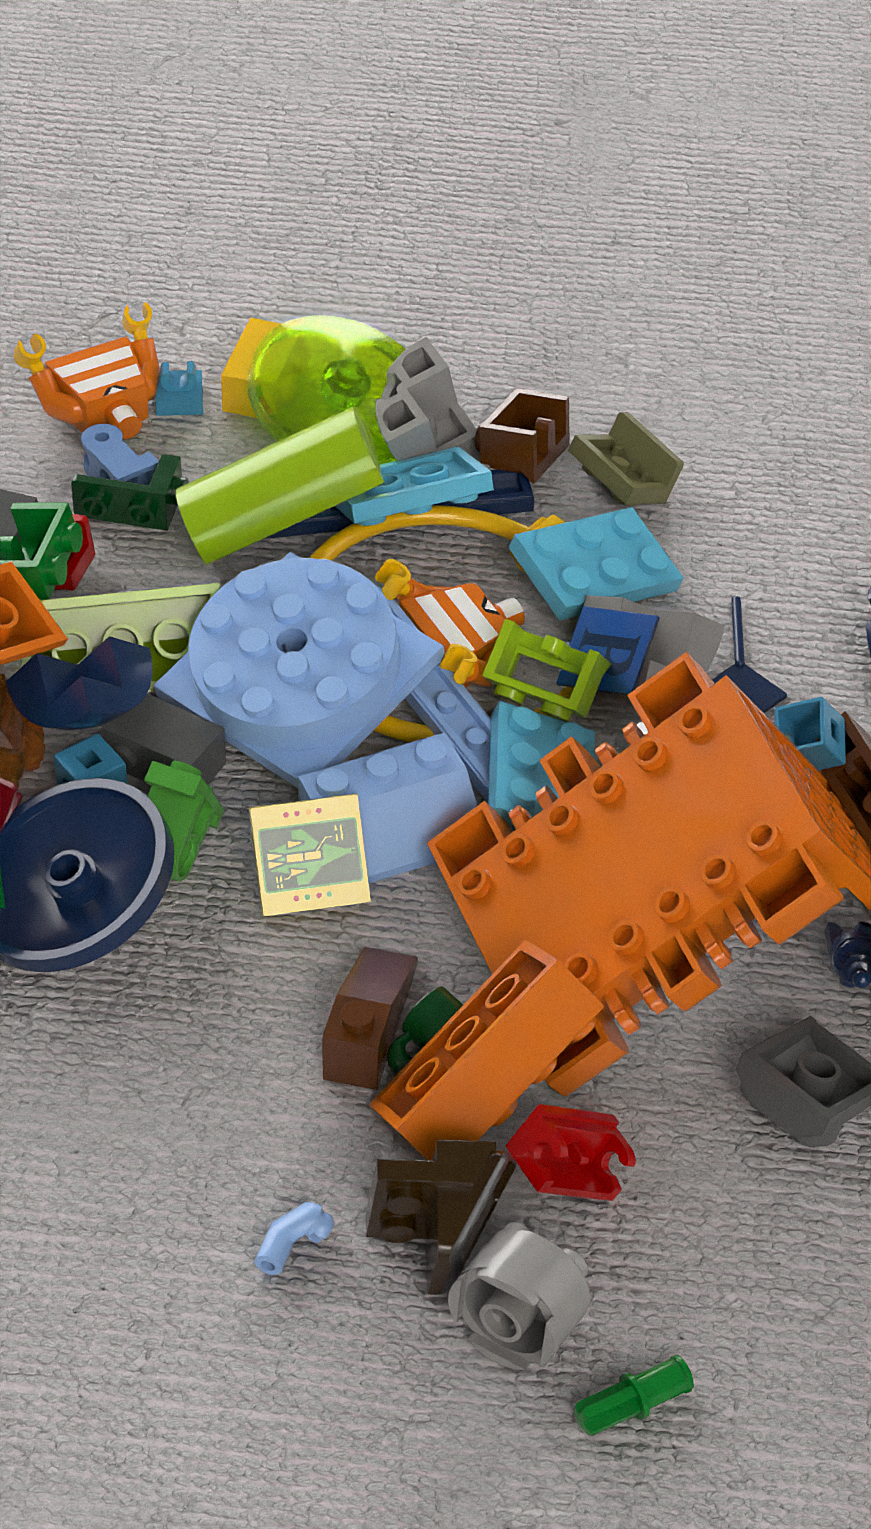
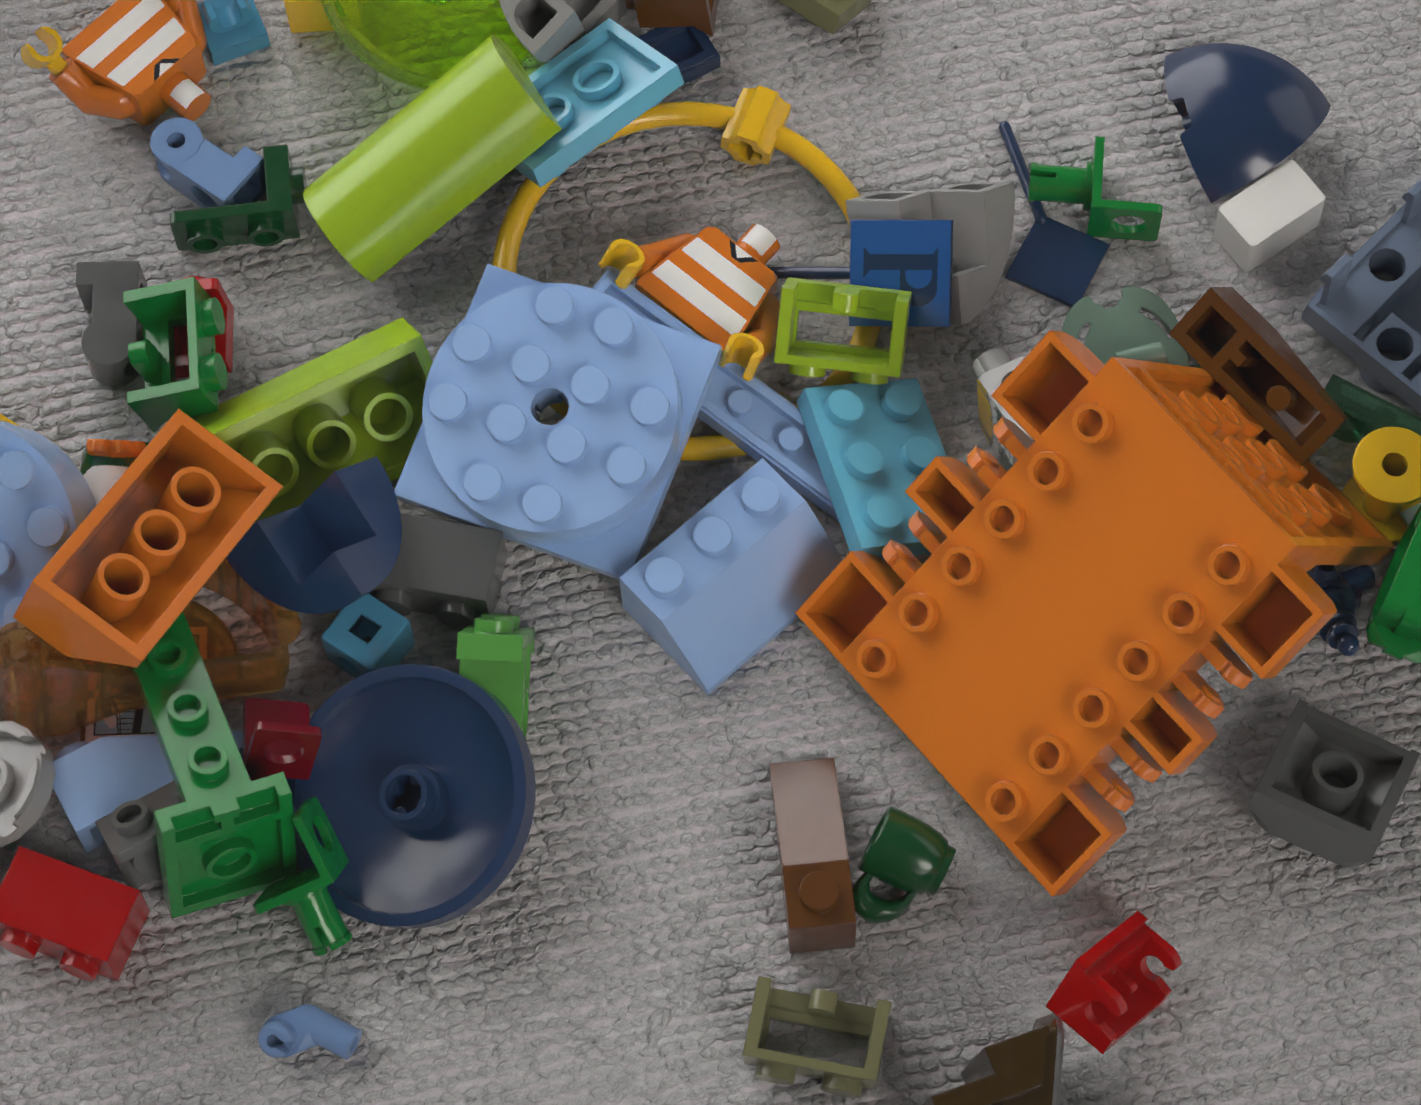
camera: 15 degrees left, 20 degrees up
(309, 854) = (669, 674): tile -> none
(323, 1116) = (822, 1012): none -> olive window
(489, 1052) = (979, 896): orange slope -> none
(595, 557) = (833, 139): medium azure plate -> none
(784, 650) = (1084, 187): none -> green bracket
(813, 720) = (1169, 324): dark azure piece -> none

